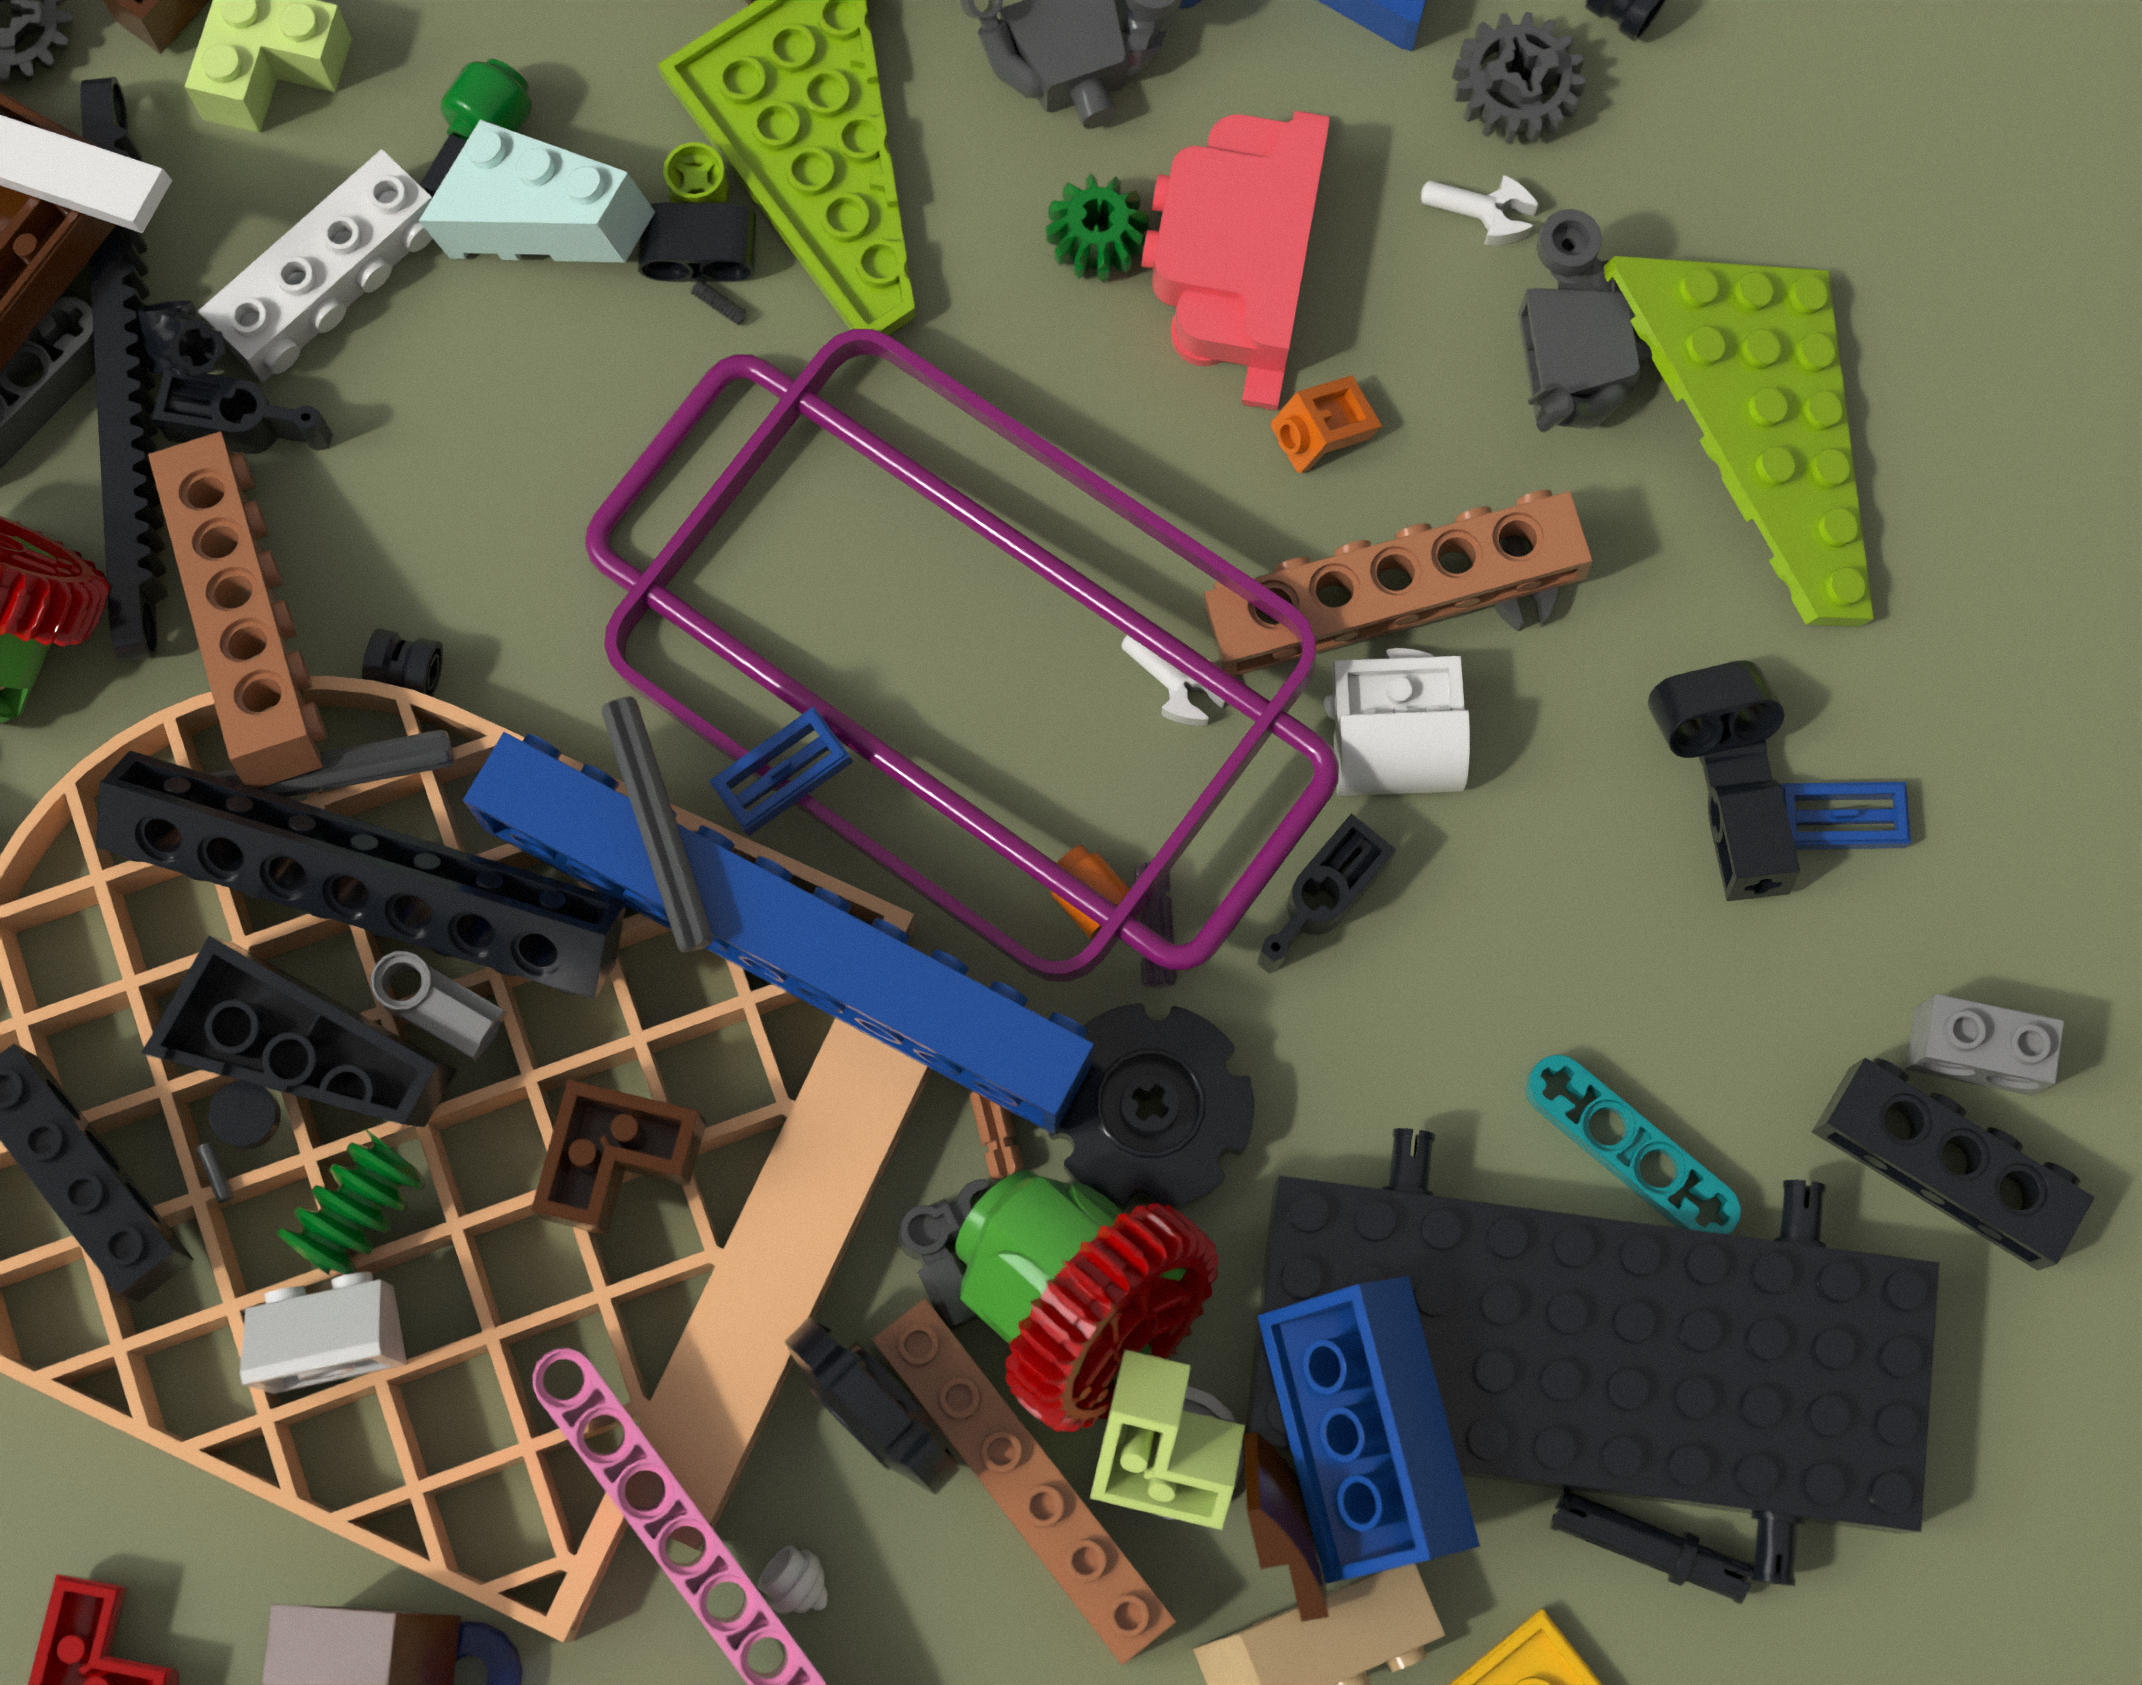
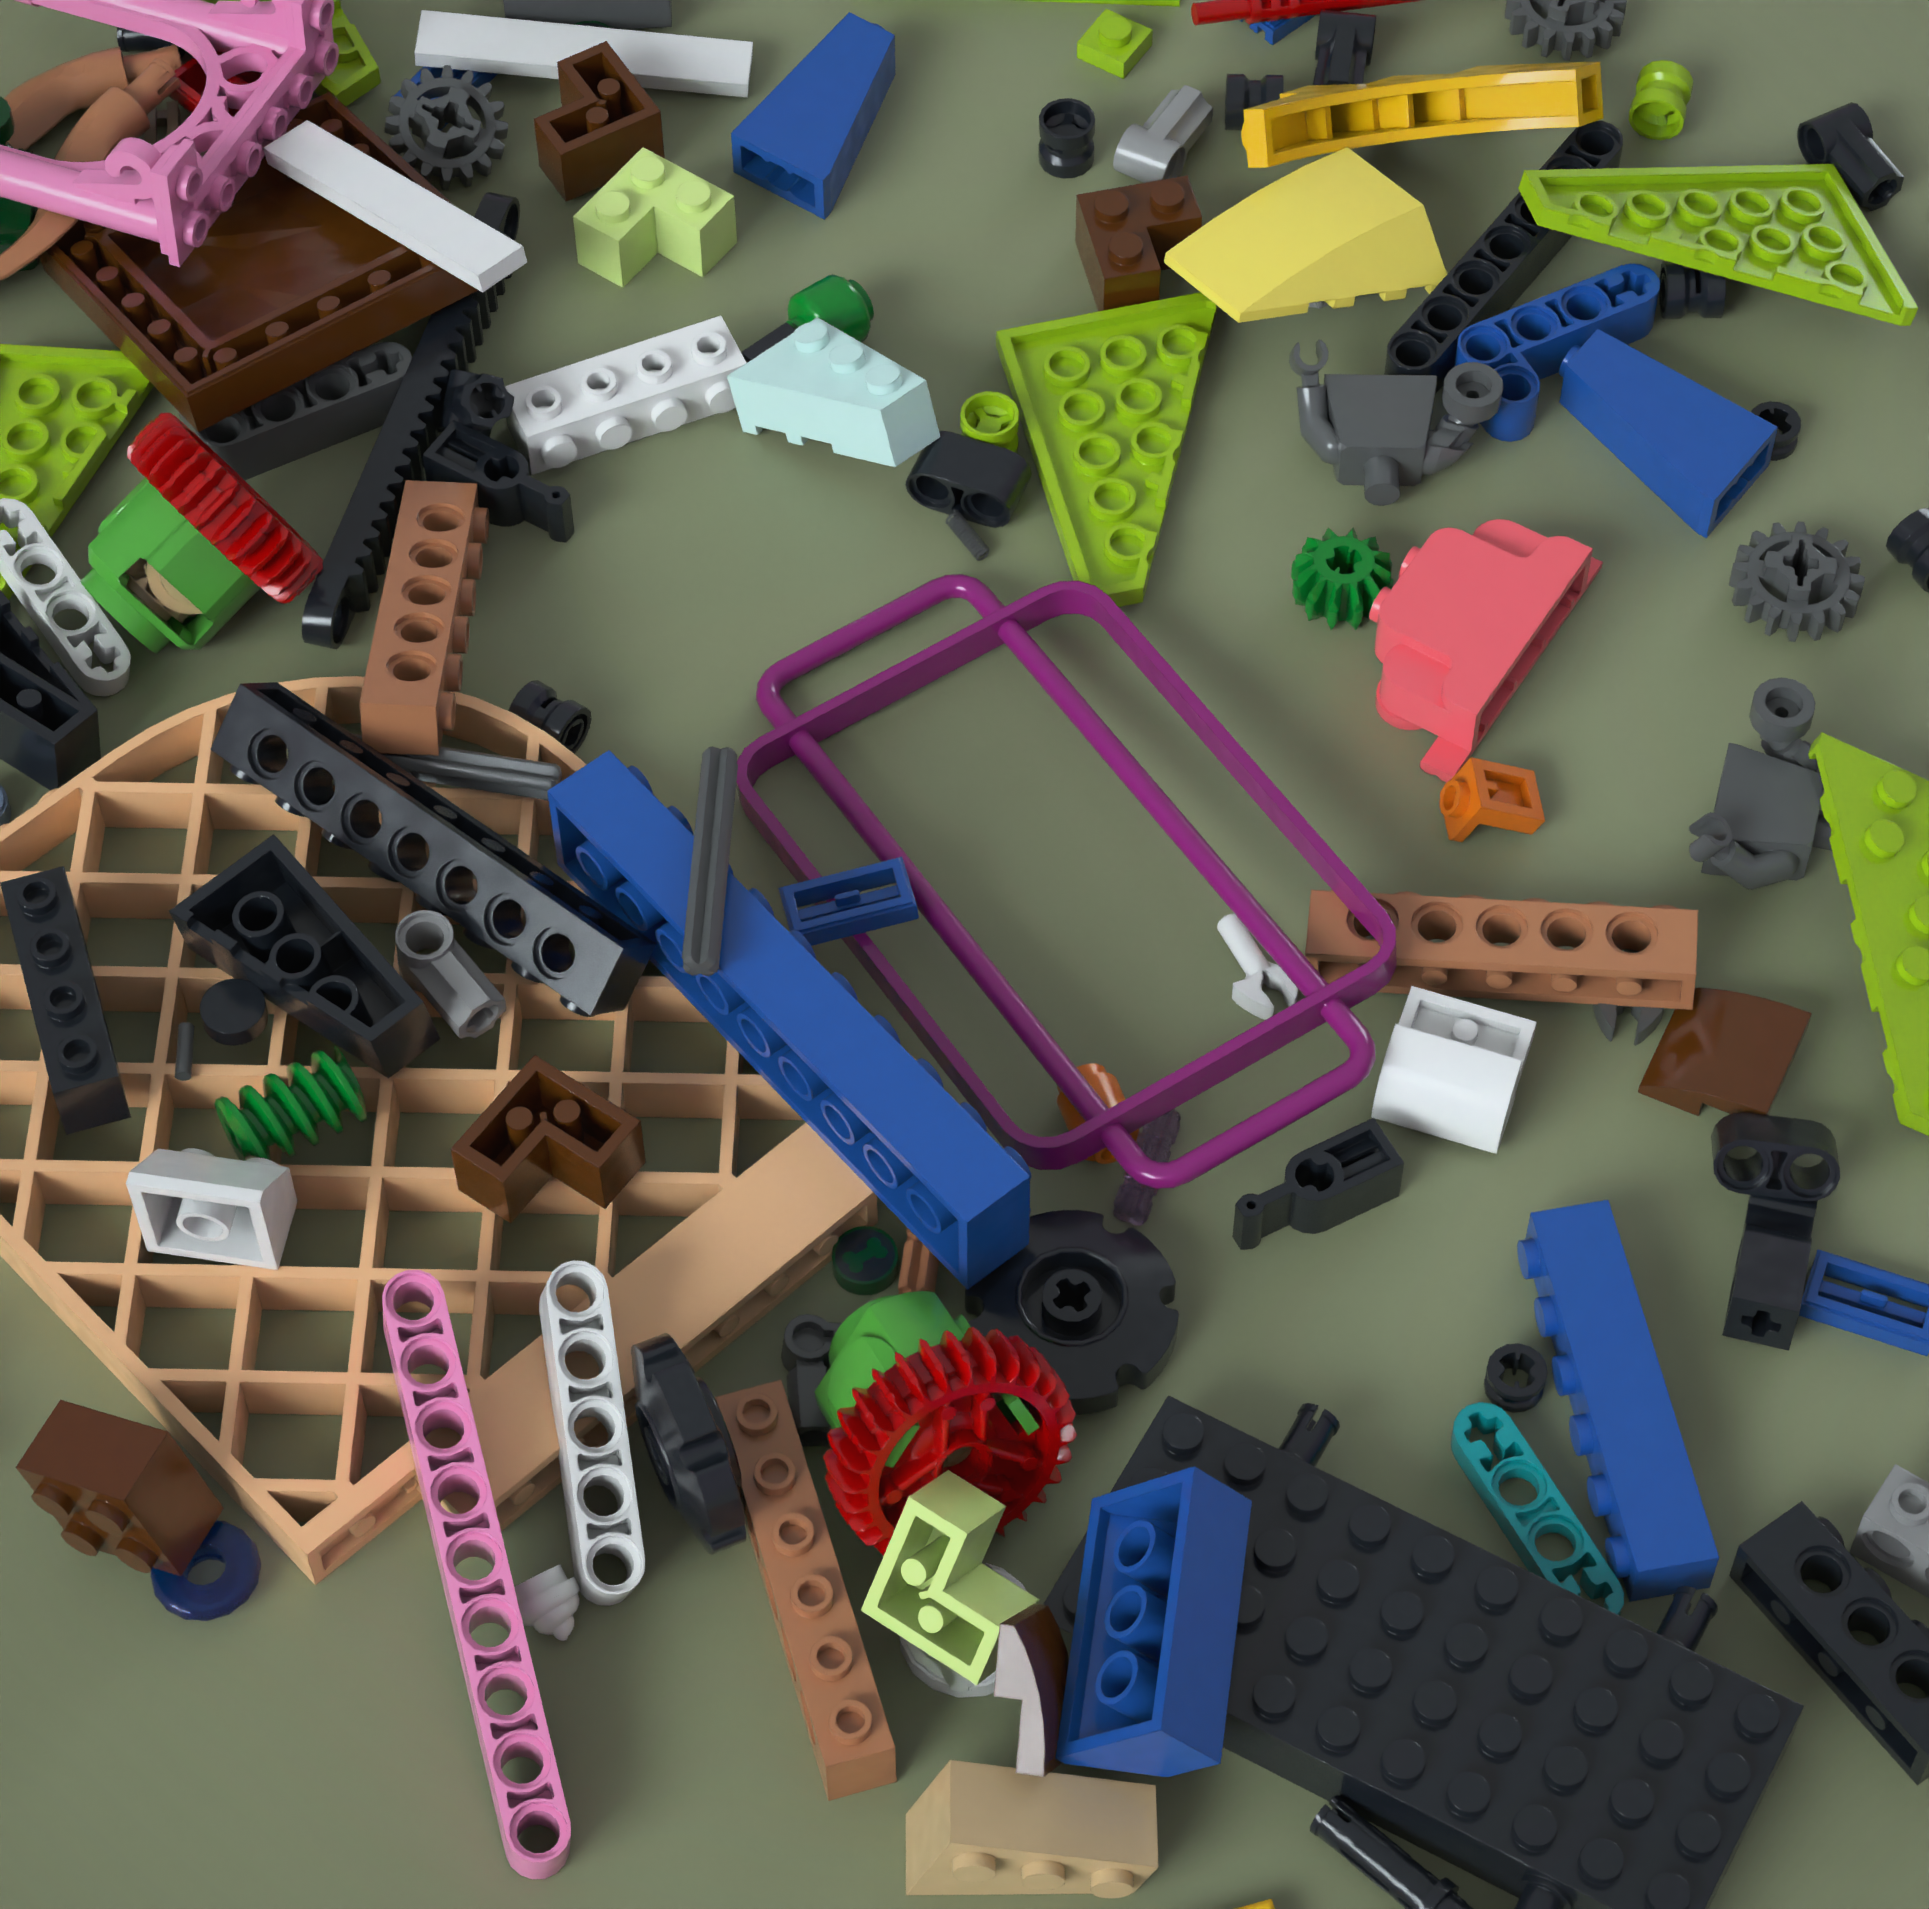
camera: 25 degrees right, 20 degrees down
(799, 1441) = (585, 1465): none -> white beam
(938, 1122) = (865, 1260): none -> tile
(1486, 208) = (1726, 682): white bar -> none
(1582, 1011) = (1516, 1357): none -> black bush
(1632, 614) = (1725, 1053): none -> reddish brown slope
(1663, 1006) = (1617, 1401): none -> blue brick

